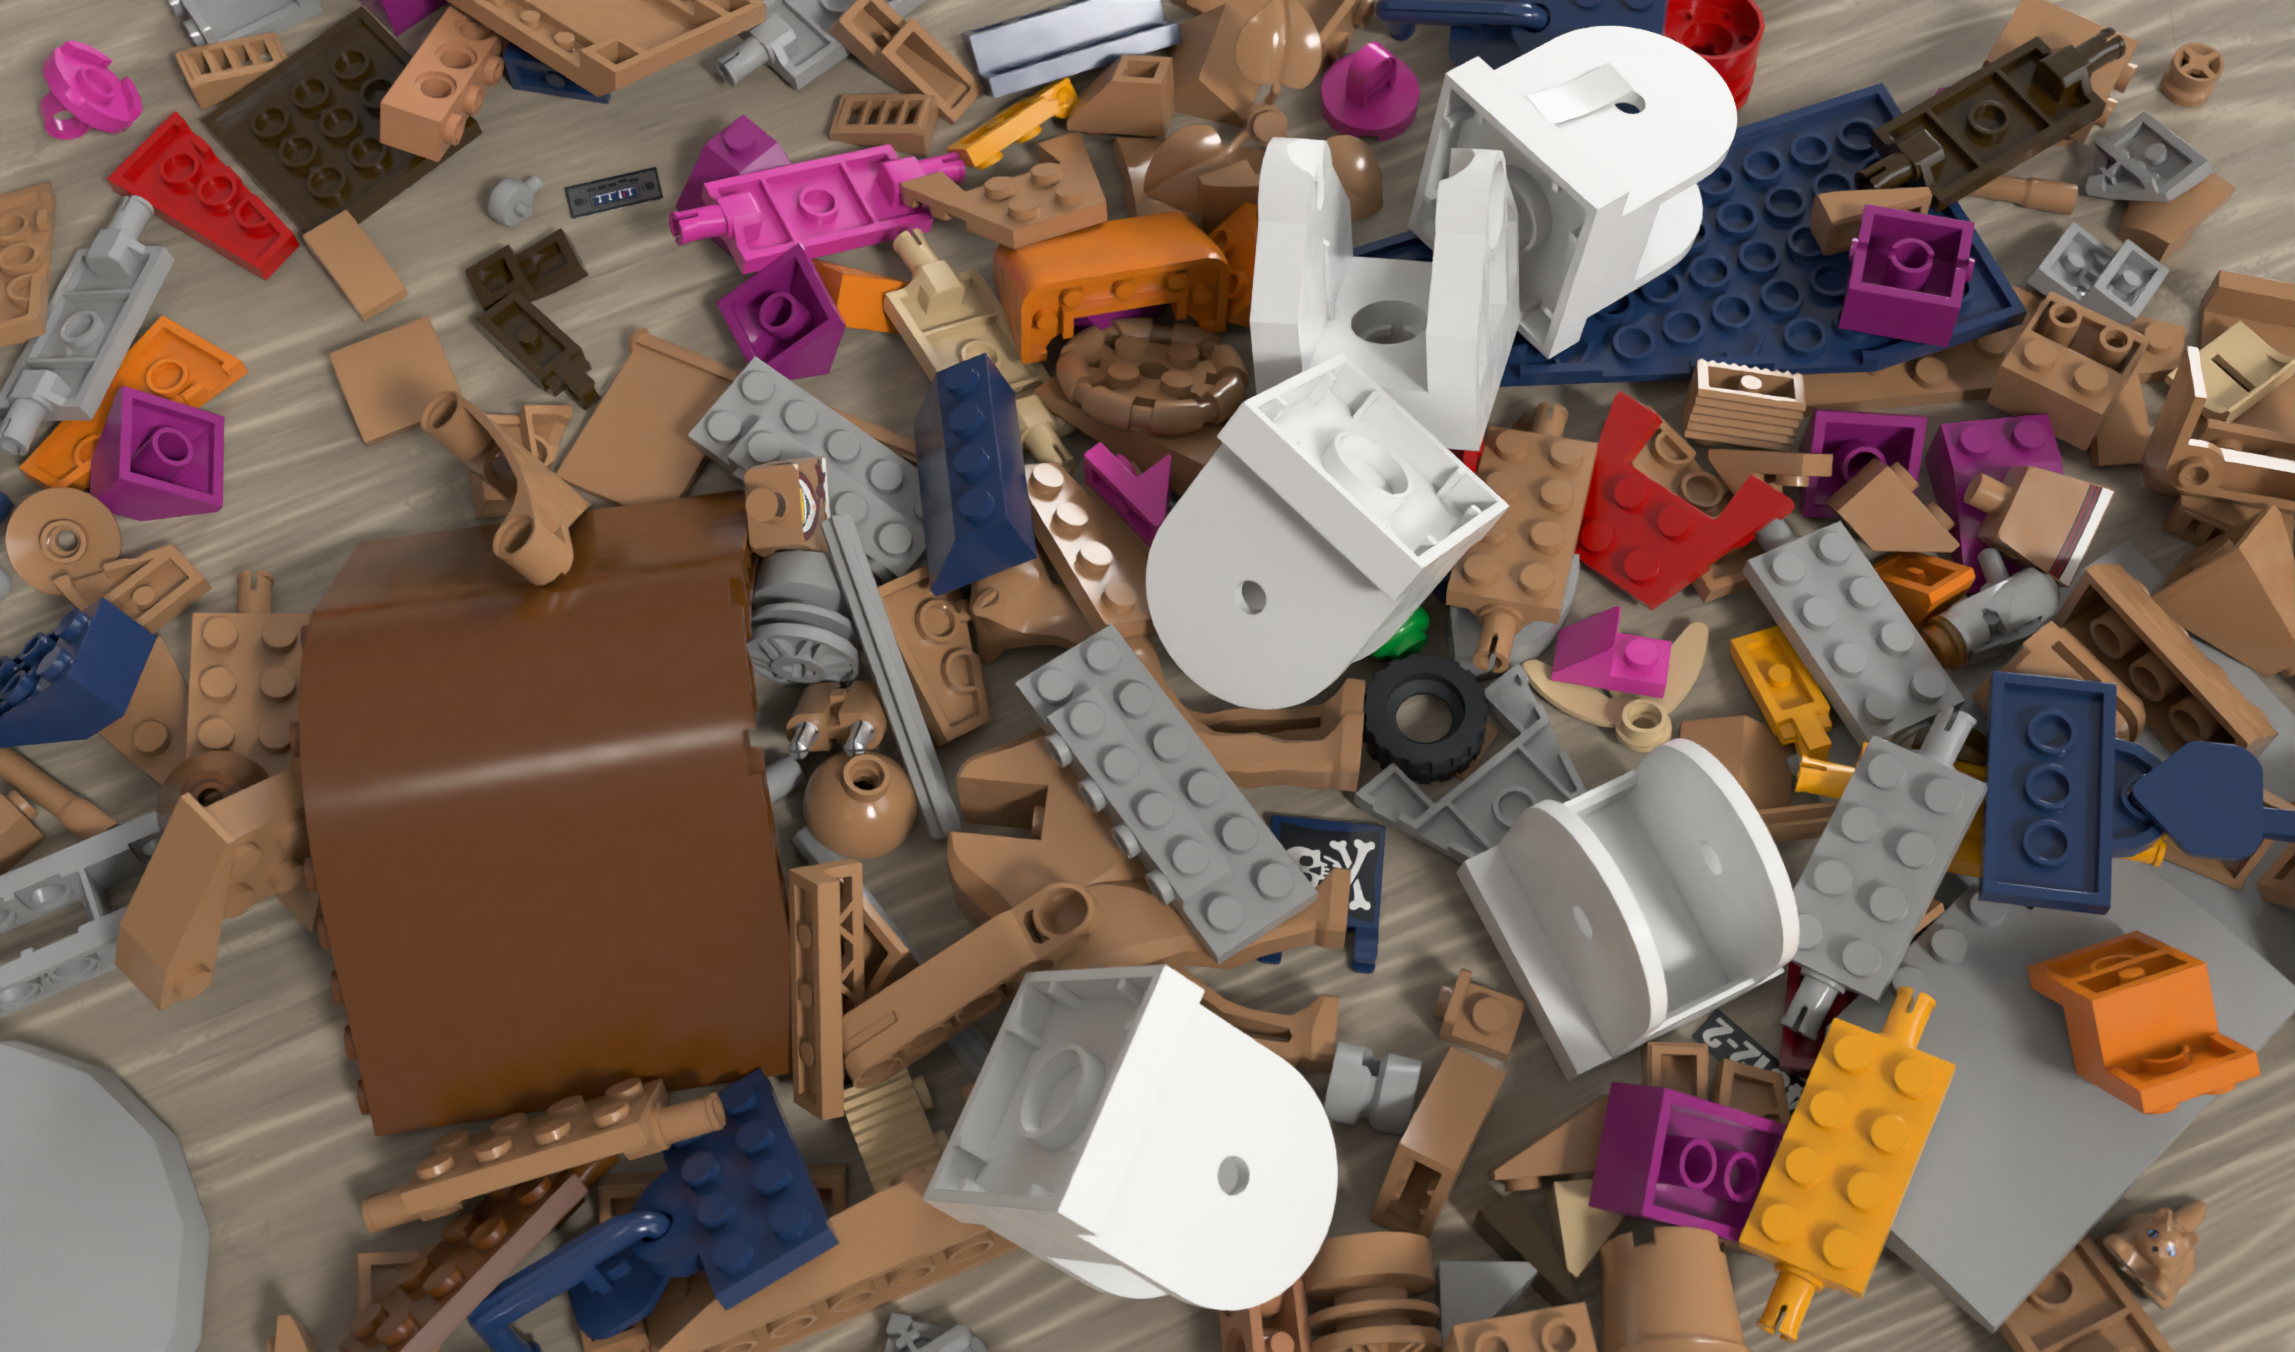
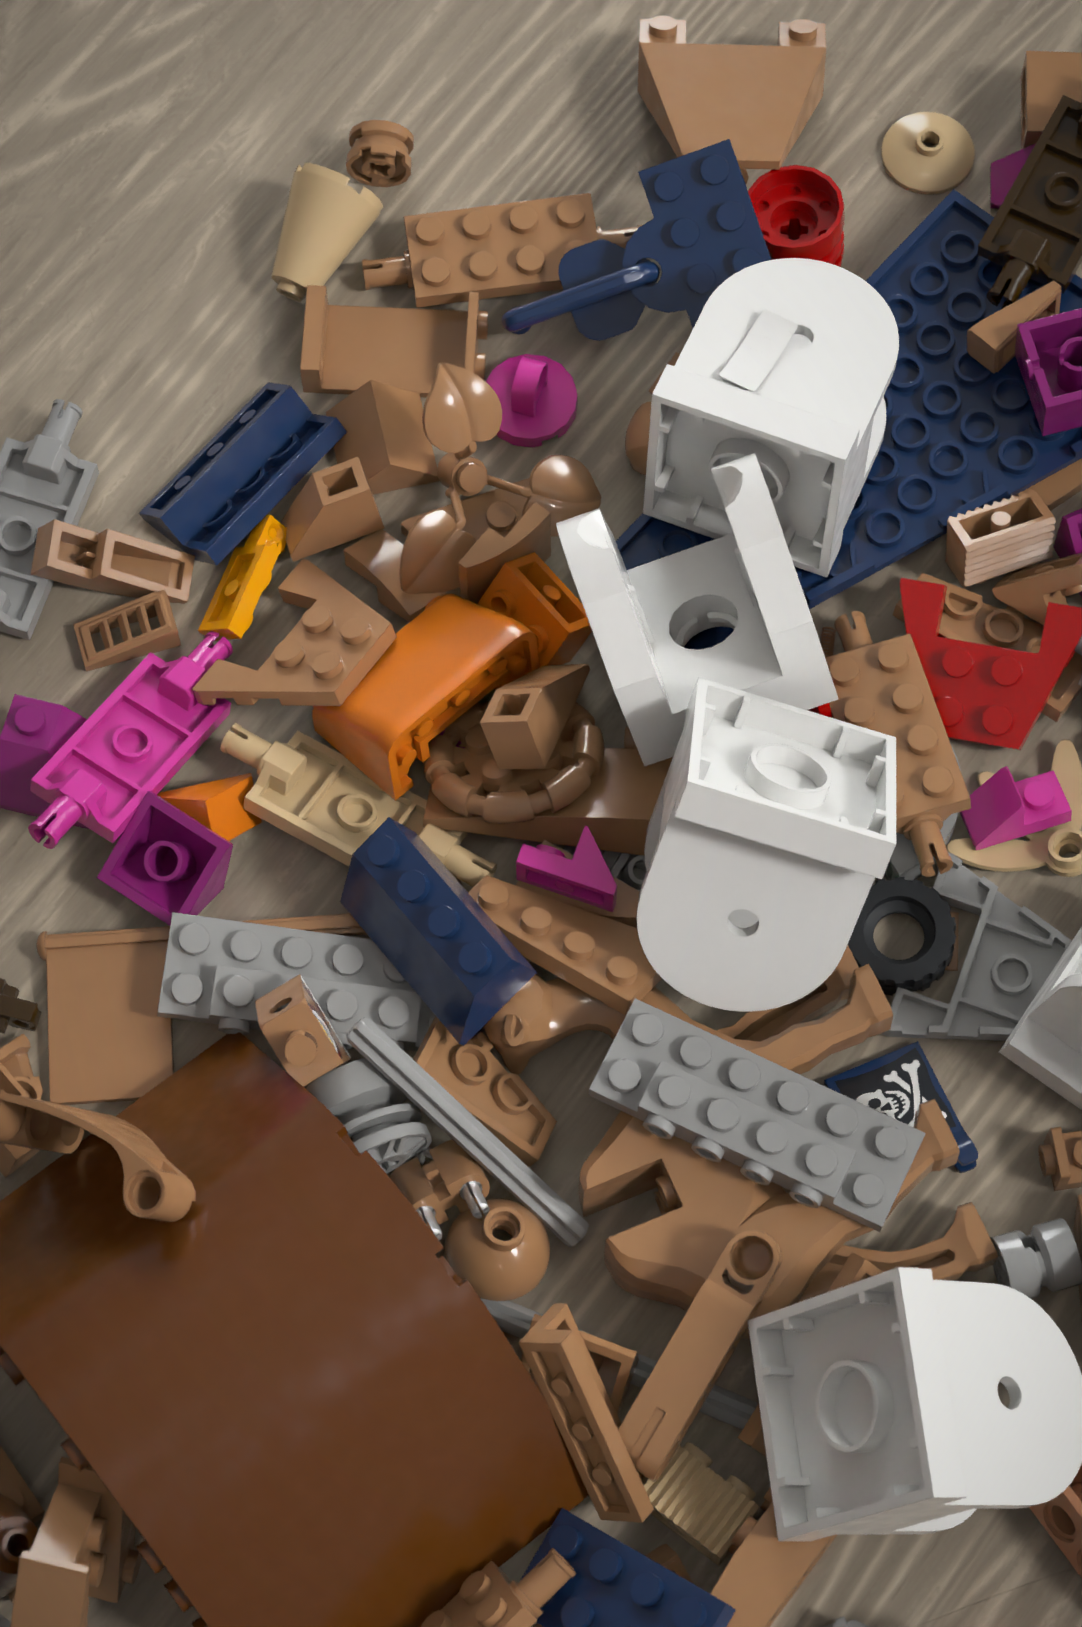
camera: 30 degrees left, 5 degrees up
(1174, 336) = (530, 715): none -> medium nougat slope
(1884, 52) = (922, 167): none -> tan dish

